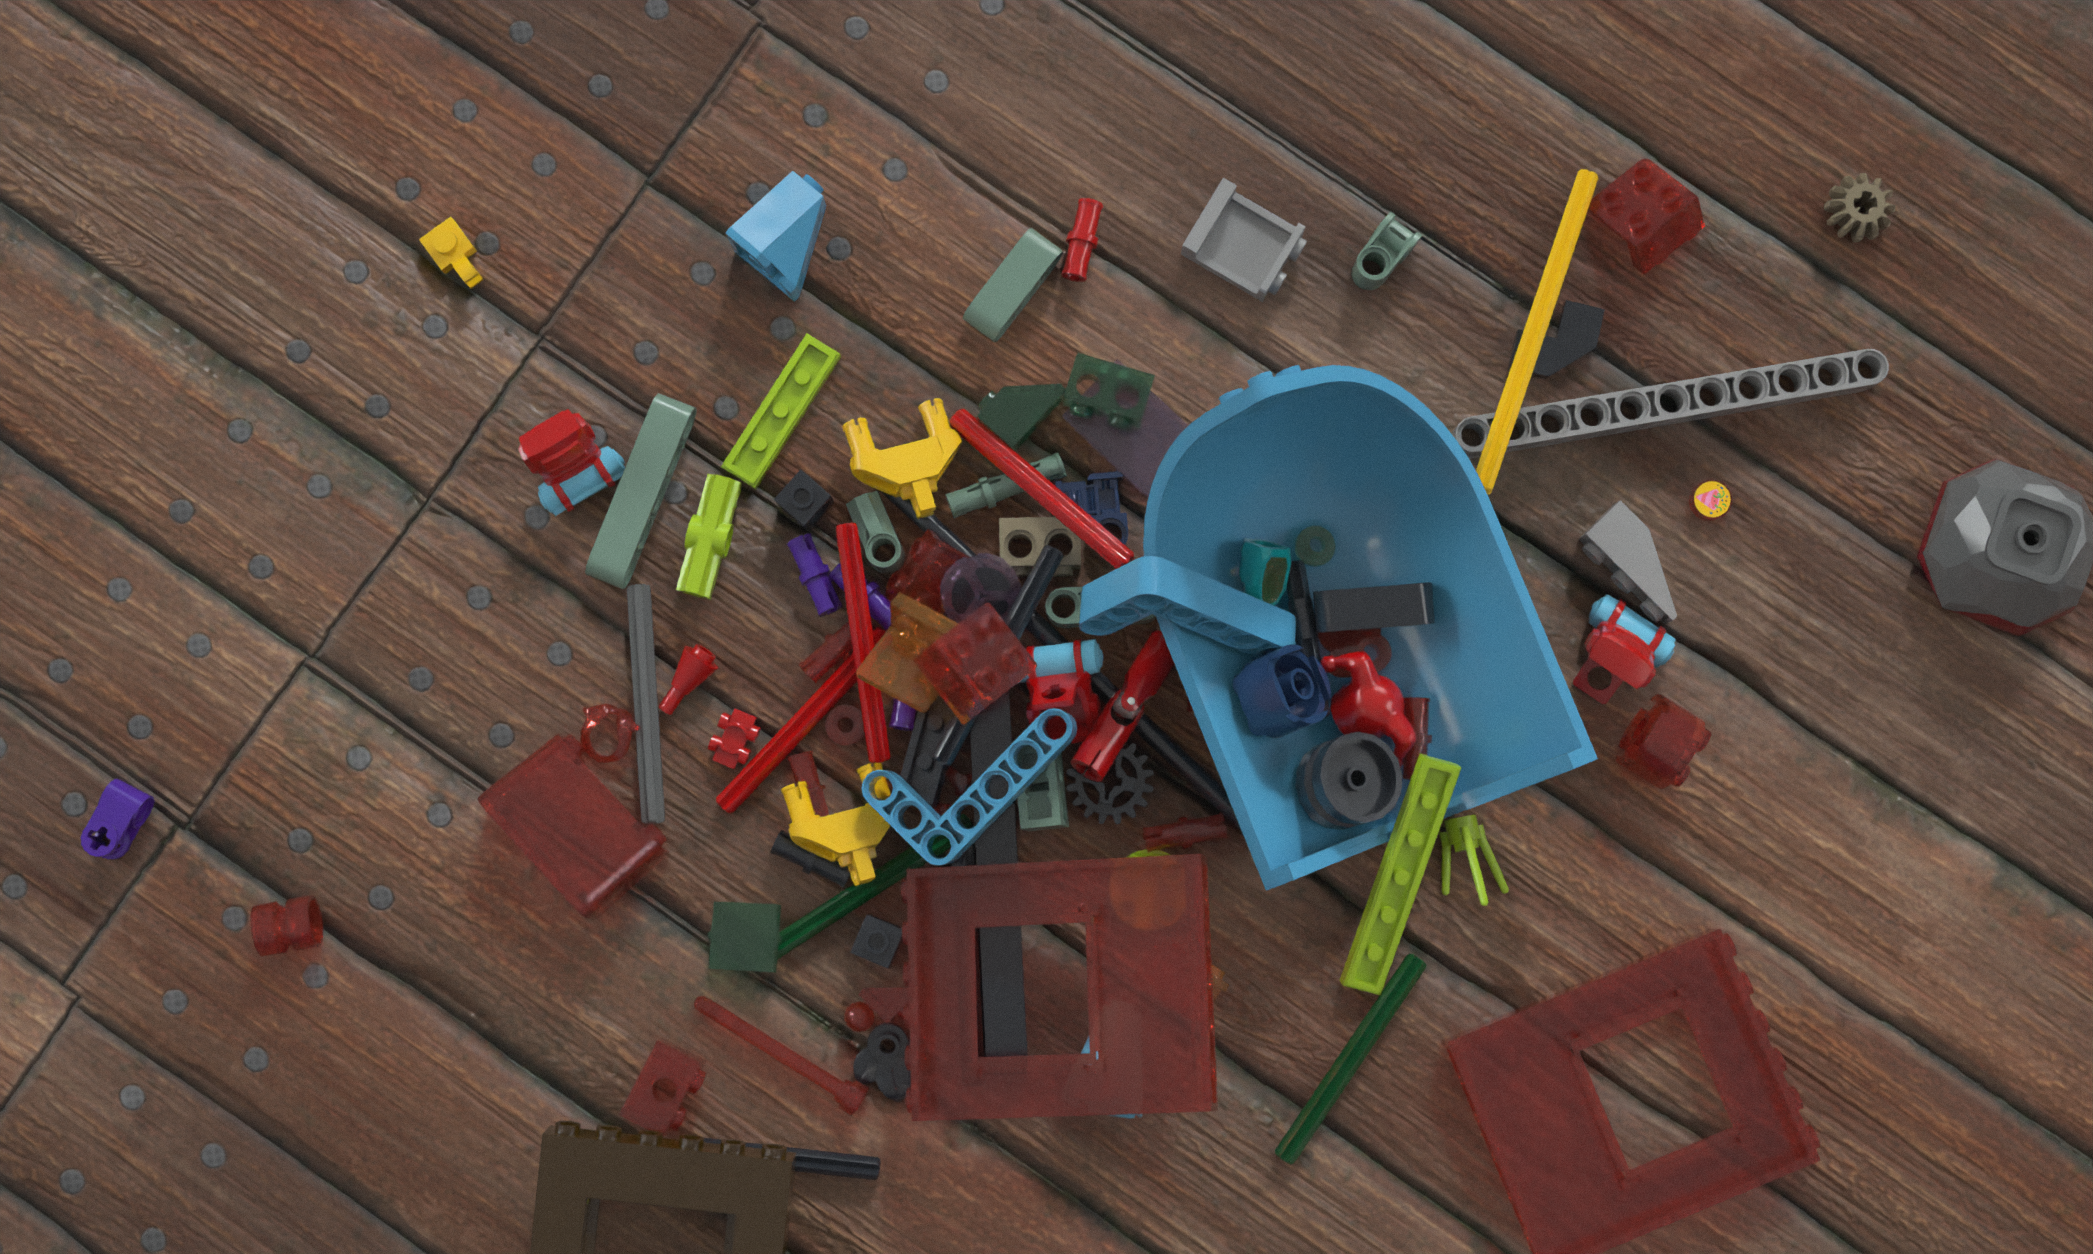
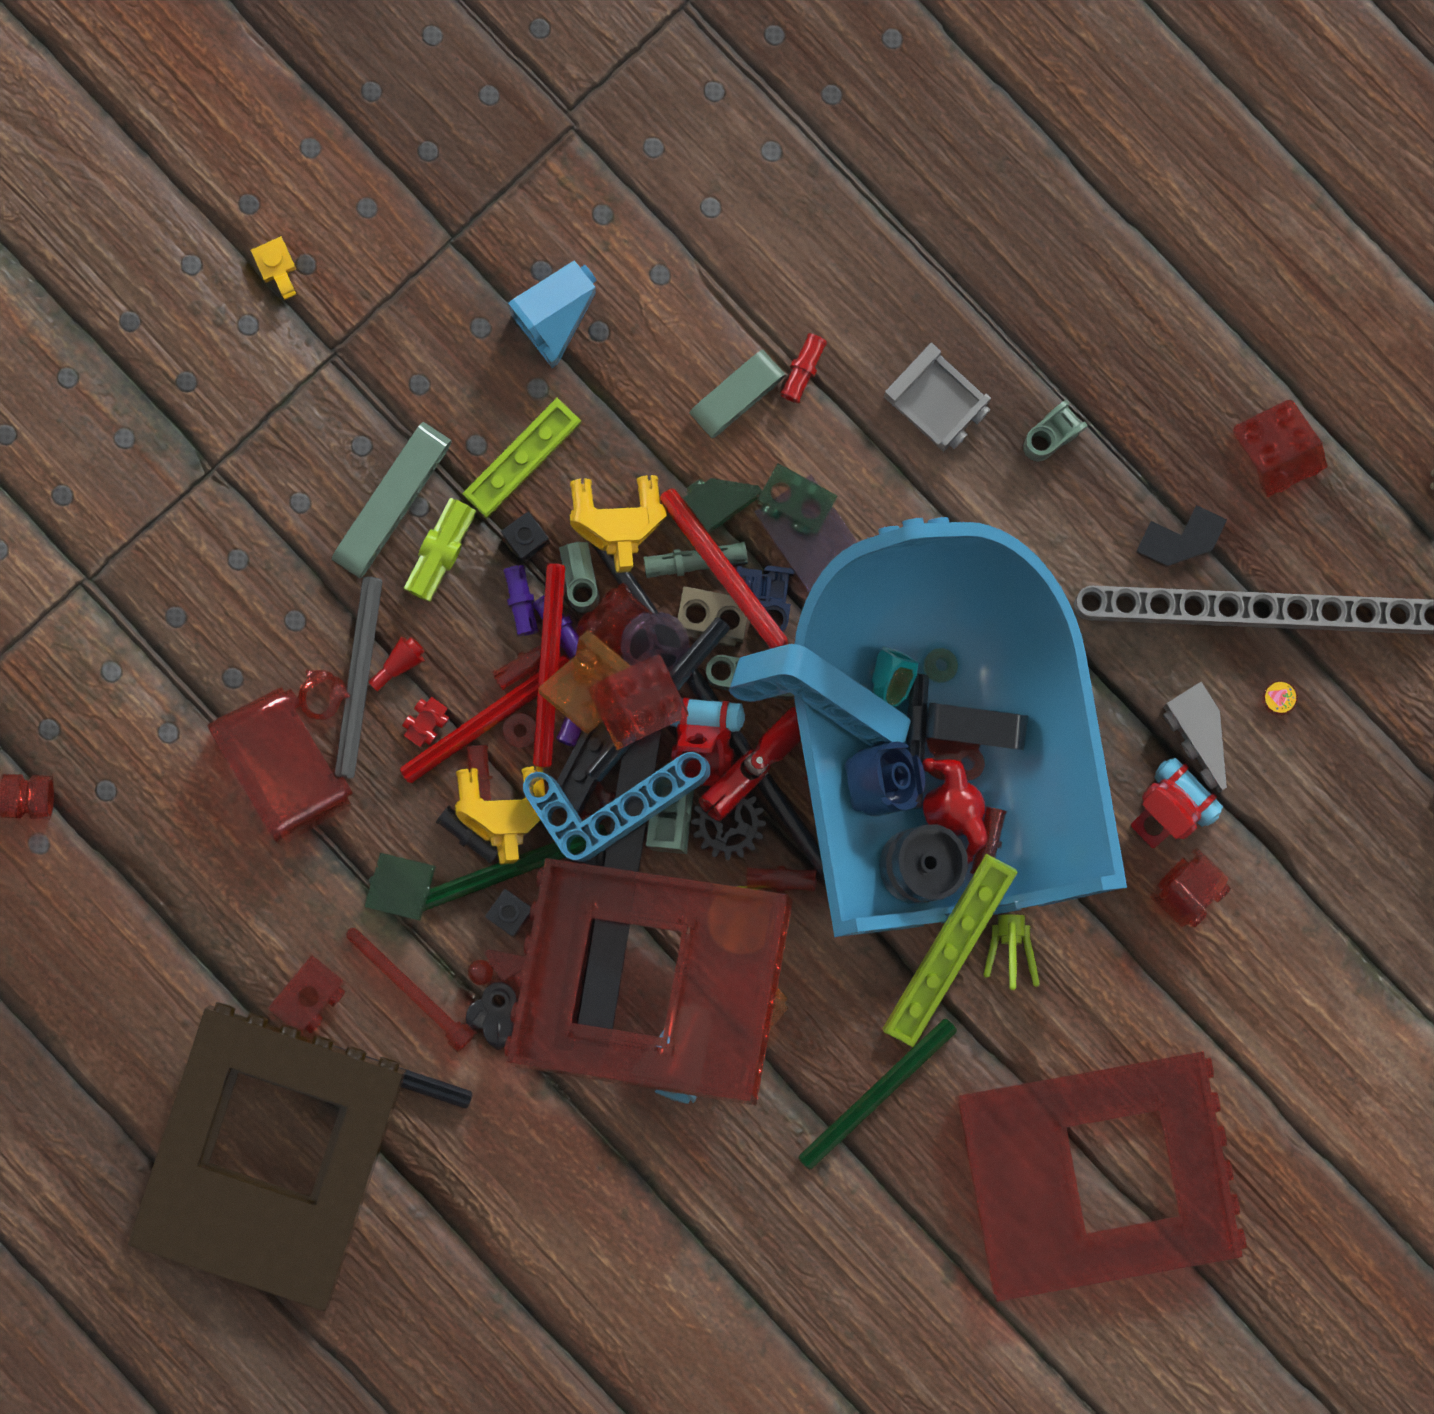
camera: 10 degrees right, 0 degrees up
(568, 461) = (337, 462): red piece -> none
(1535, 328) = (1163, 524): yellow axle -> none

